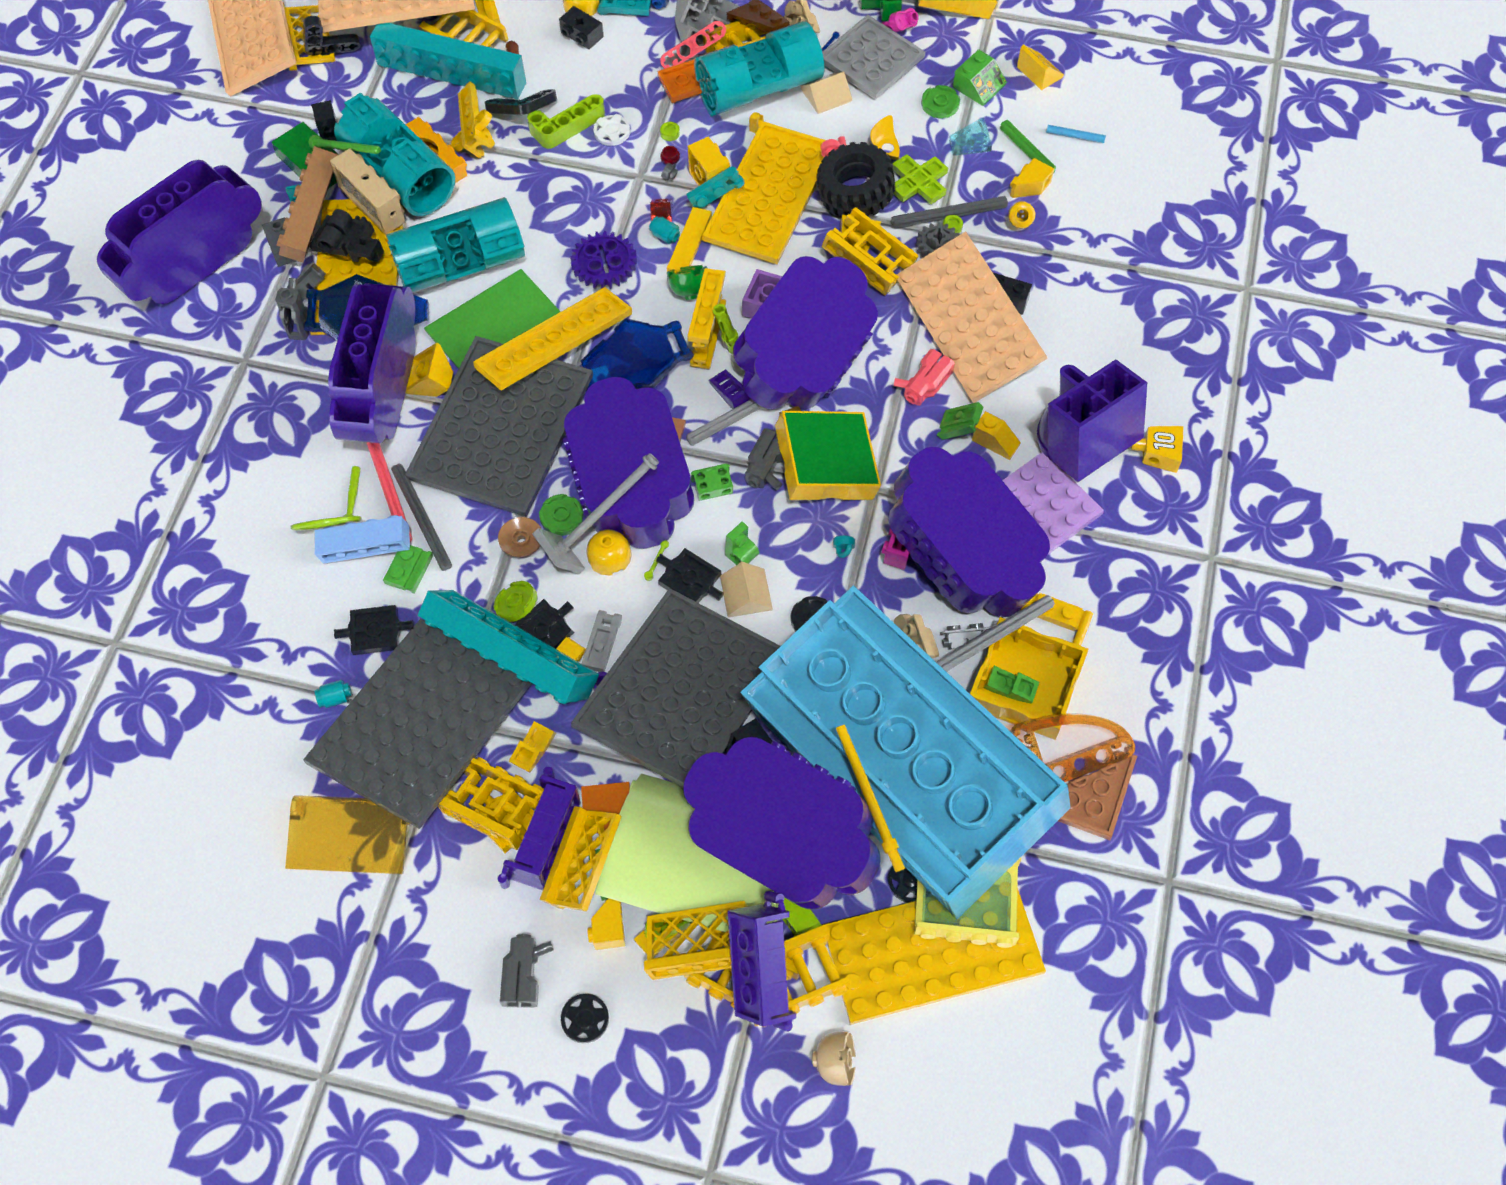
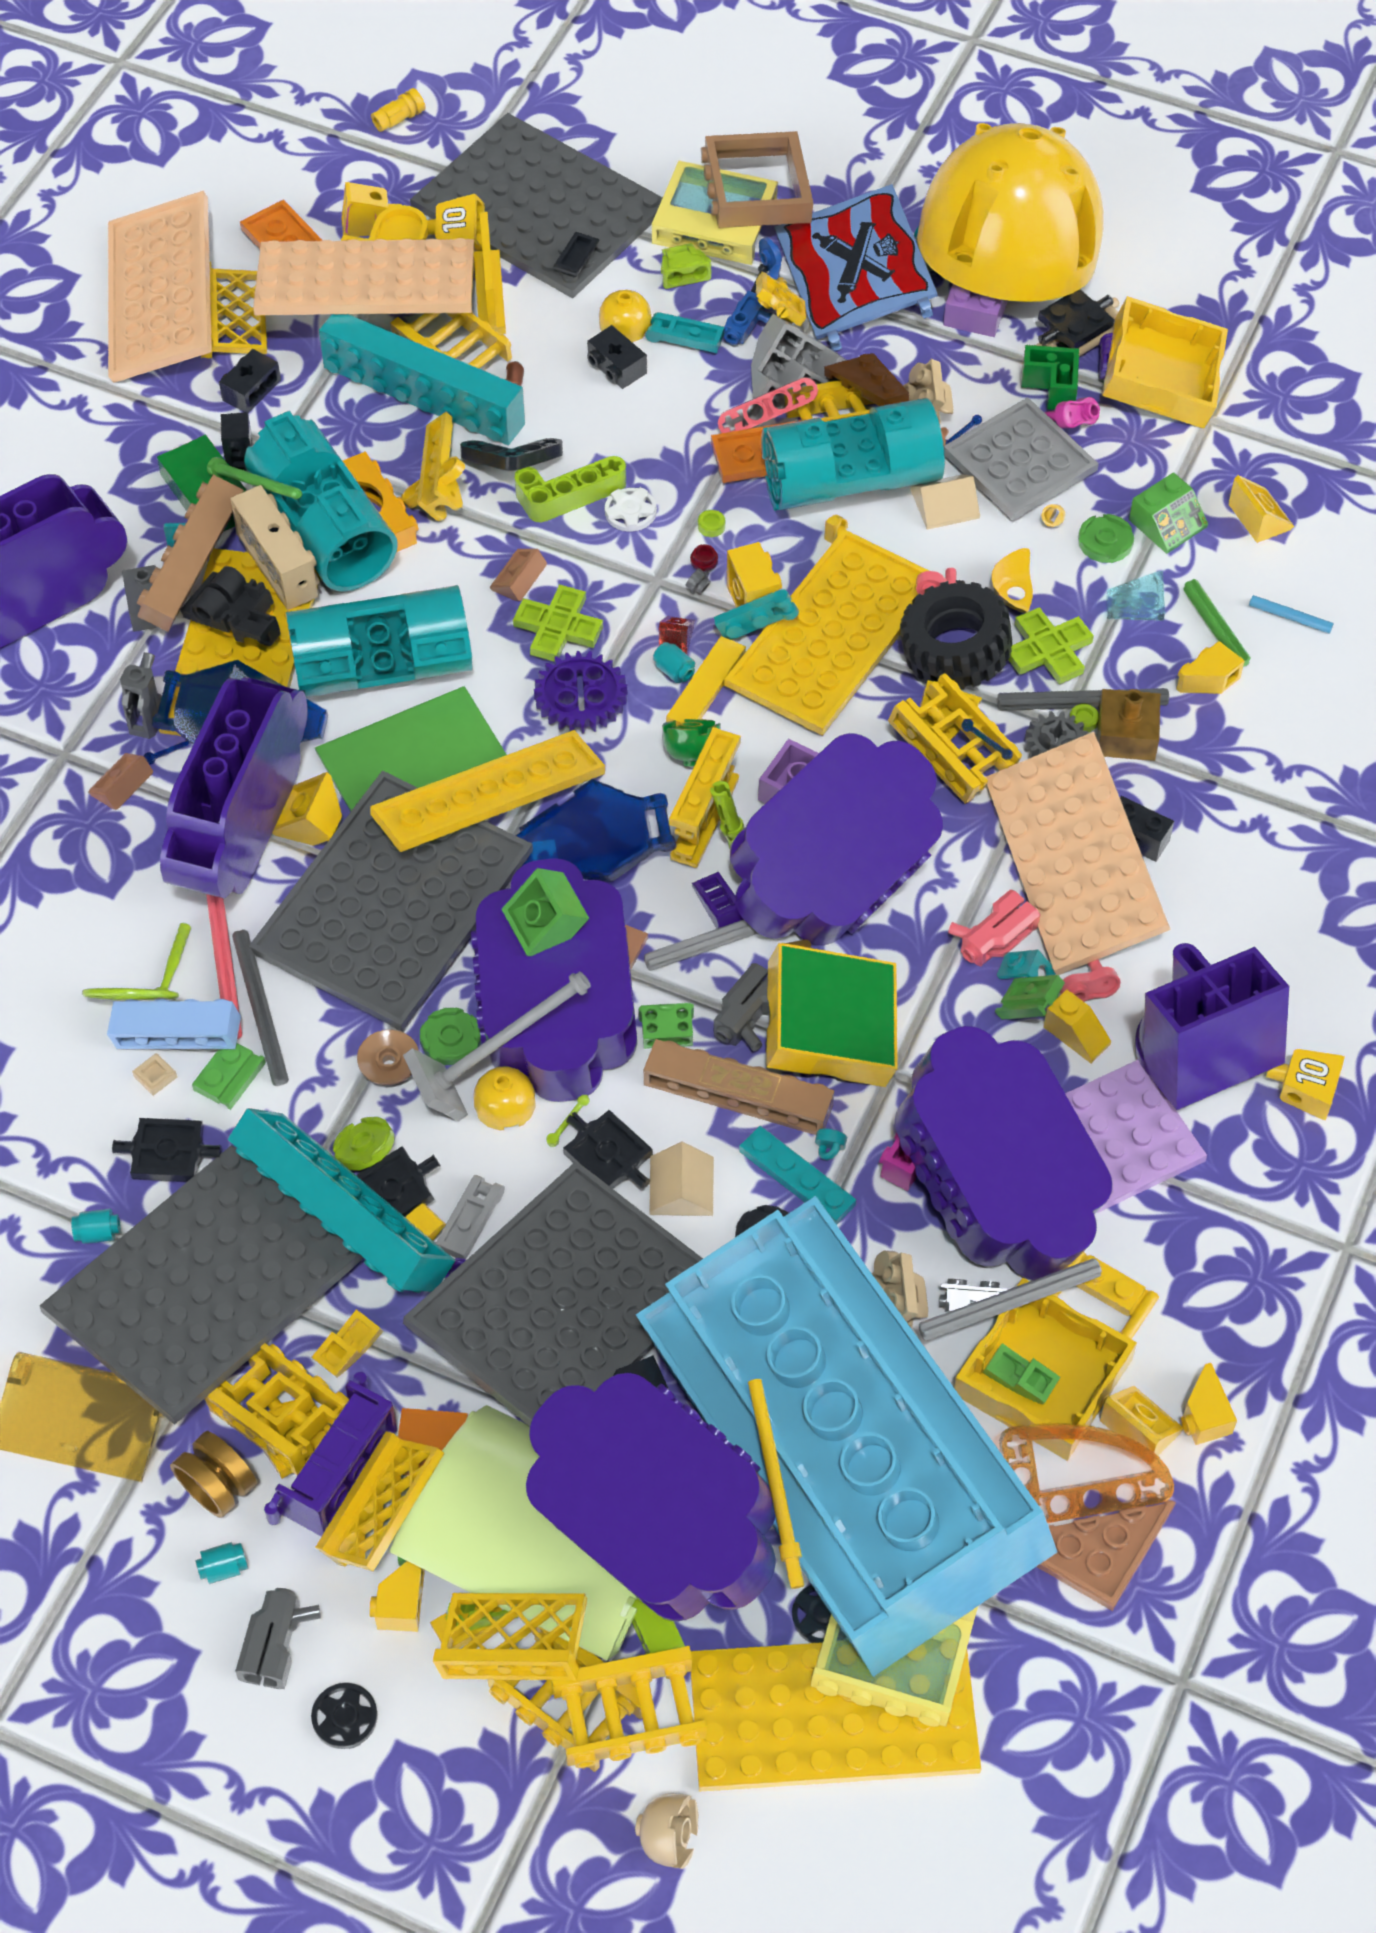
camera: 10 degrees right, 5 degrees down
(290, 372) = (121, 780): none -> nougat slope
(308, 353) = (151, 758): none -> clear blue hinge
(311, 275) = (174, 651): dark grey hinge -> none
(318, 44) = (245, 328): black beam -> none
(327, 80) = (249, 381): none -> black brick
(354, 577) = (154, 1074): none -> tan tile
(455, 860) = (213, 1474): none -> pearl gold wheel
(473, 923) = (221, 1562): none -> teal brick
(543, 185) = (519, 574): none -> nougat slope
(578, 215) = (558, 623): none -> lime plate
(613, 415) = (544, 911): none -> bright green slope
(739, 546) = (683, 1118): bright green plate -> none
(760, 963) = (584, 1675): dark purple container -> none
(772, 516) = (738, 1087): none -> medium nougat brick
(823, 570) = (796, 1173): none -> teal plate
(878, 241) = (968, 725): none -> hinge
(898, 90) = (1049, 512): none -> yellow hinge
(950, 399) = (1024, 964): none -> teal bracket
(986, 223) = (1129, 724): none -> pearl gold brick
(1002, 404) = (1095, 984): none -> coral piece
(1029, 214) = (1179, 728): yellow head -> none
(1099, 701) = (1140, 1419): none -> yellow slope
(1145, 686) = (1208, 1409): none -> yellow slope

